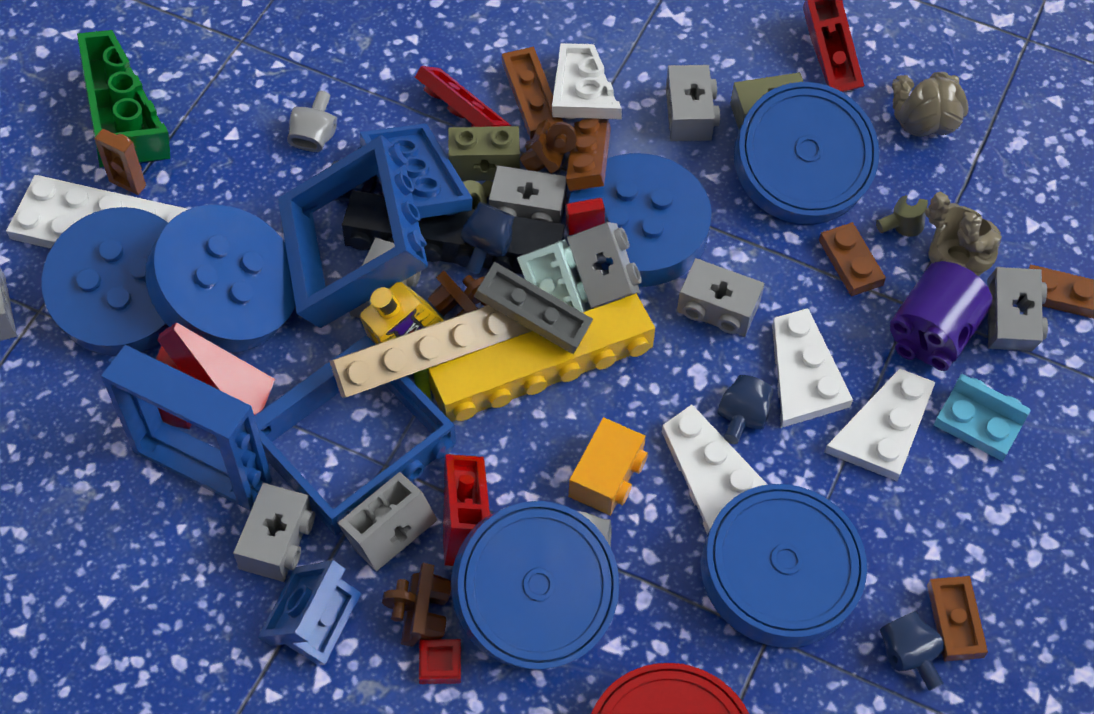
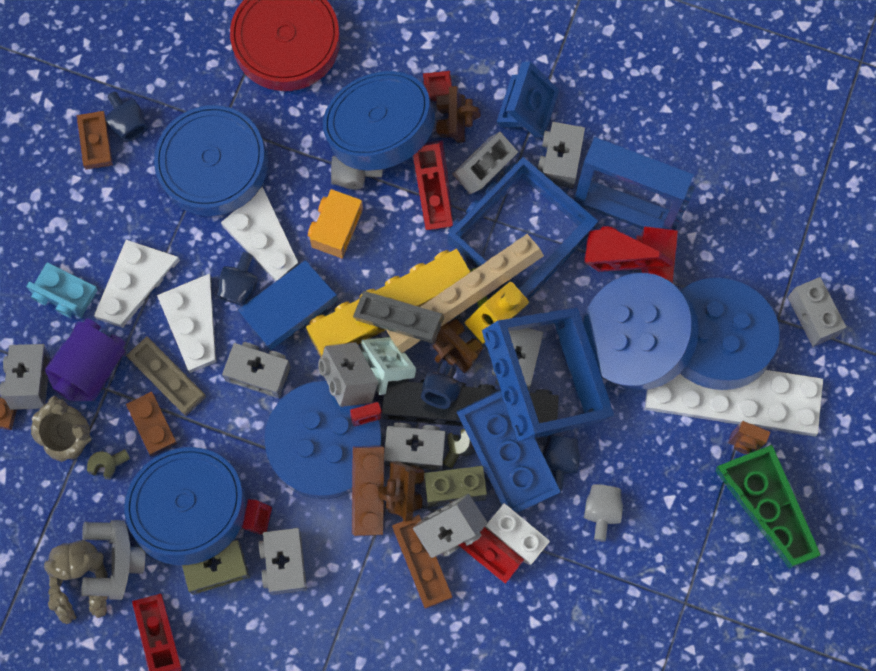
camera: 175 degrees right, 15 degrees up
(413, 96) = (517, 534): none -> white plate
(495, 100) = (451, 526): none -> light grey brick
(582, 86) = (379, 566): white wing -> none
(677, 369) = (288, 305): none -> blue tile
(721, 145) = (256, 517): none -> red tile
(836, 310) = (166, 376): none -> dark tan tile
(877, 109) = (125, 559): none -> light grey connector

